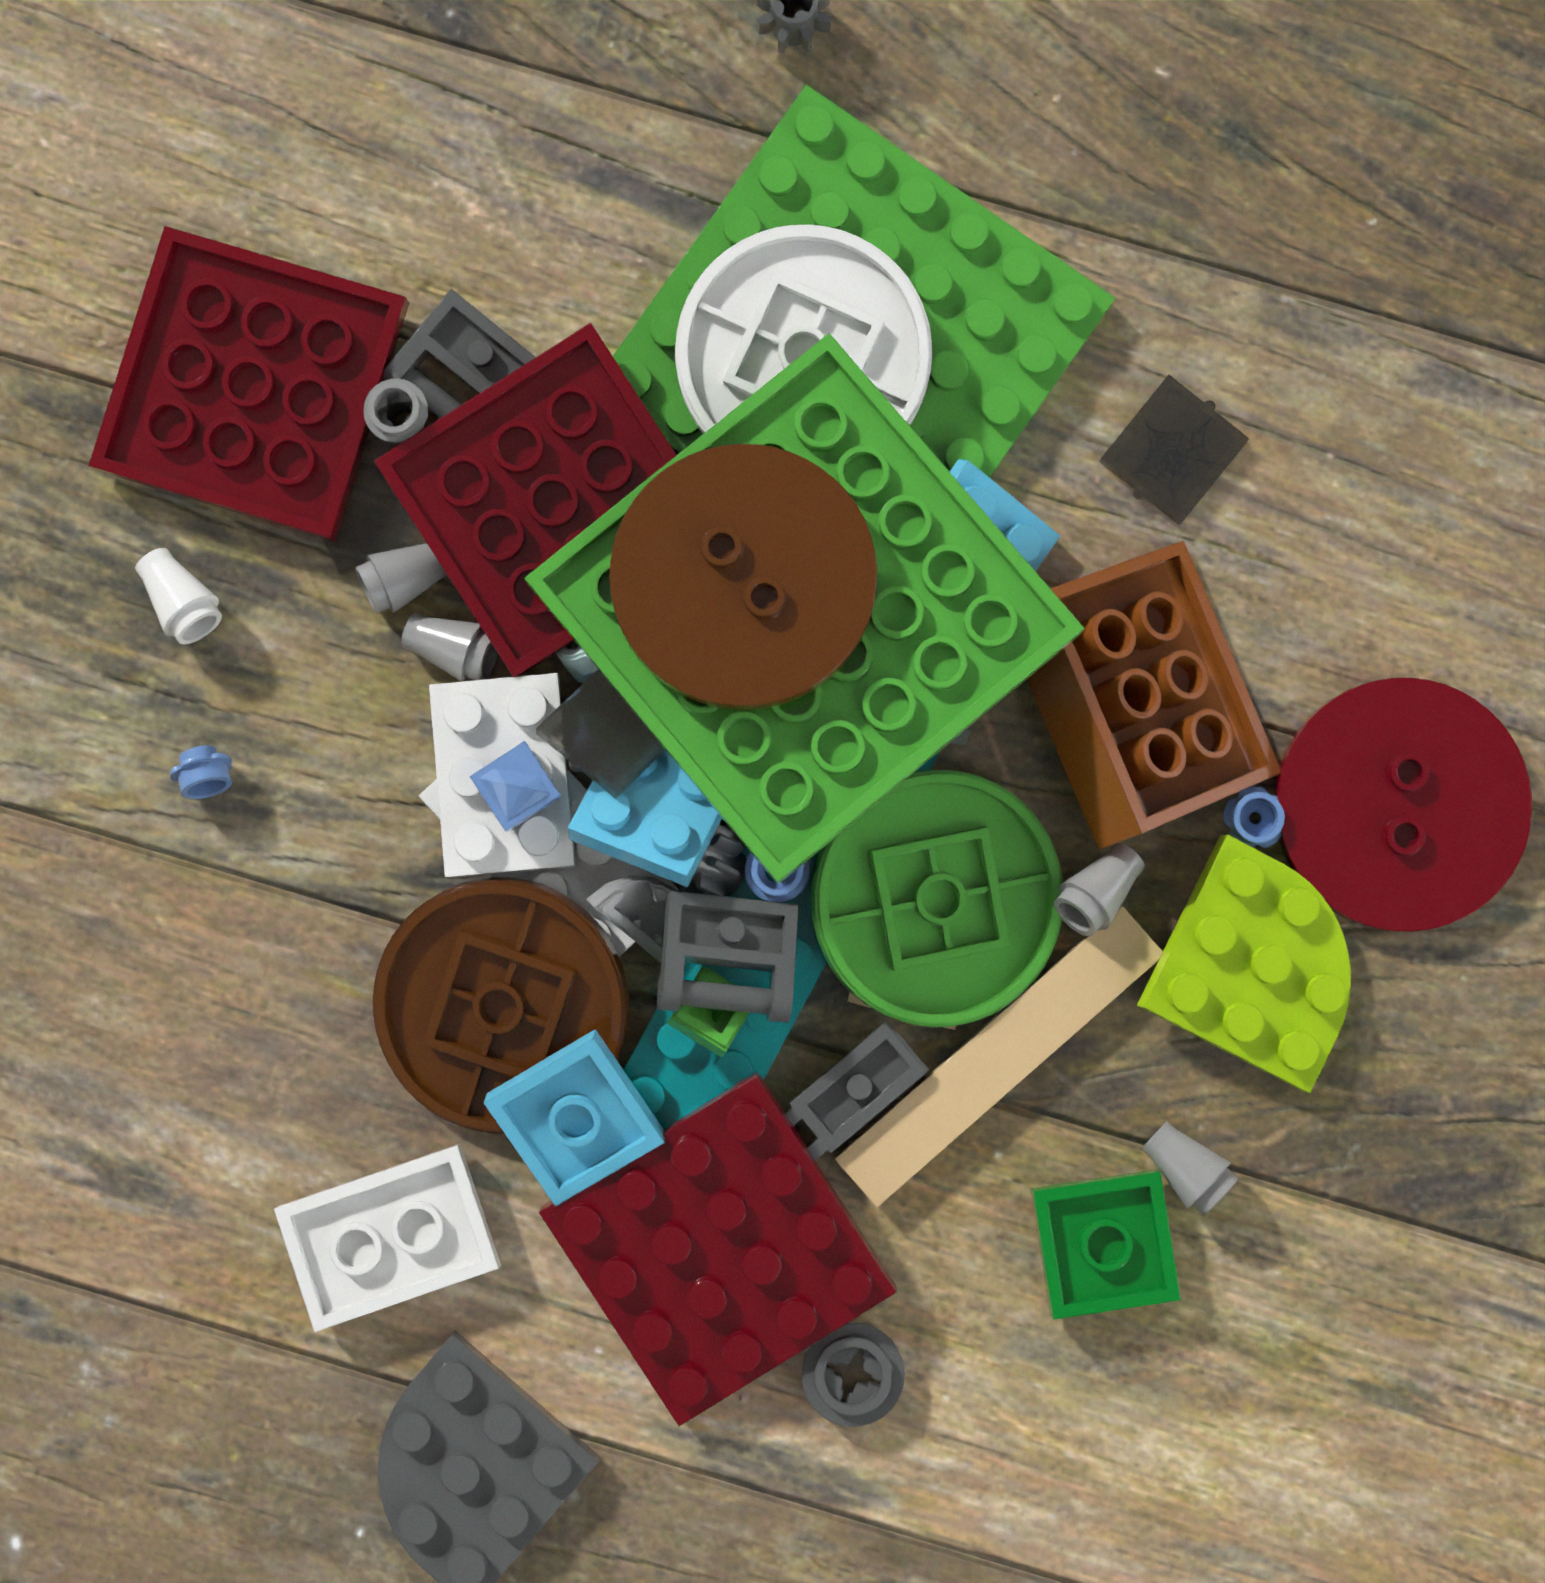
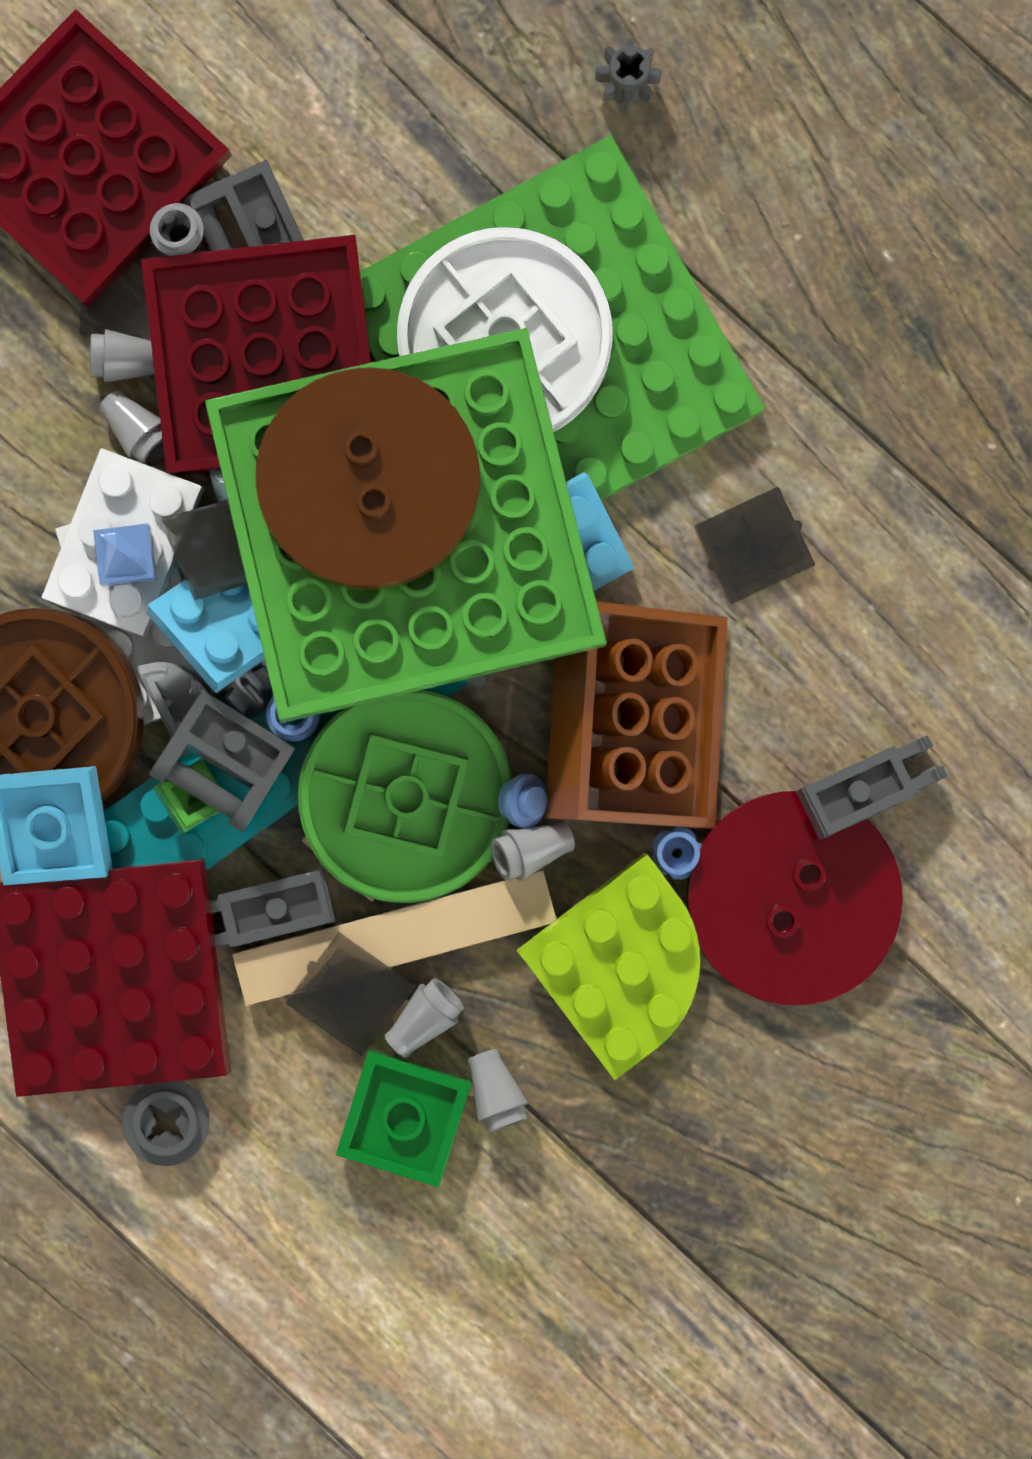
camera: 25 degrees right, 0 degrees up
(982, 1139) = (350, 994): none -> clear smoke piece
(1066, 842) = (523, 800): none -> medium blue plate
(1074, 1125) = (426, 1016): none -> light grey cone
(1425, 651) = (866, 788): none -> dark grey hinge

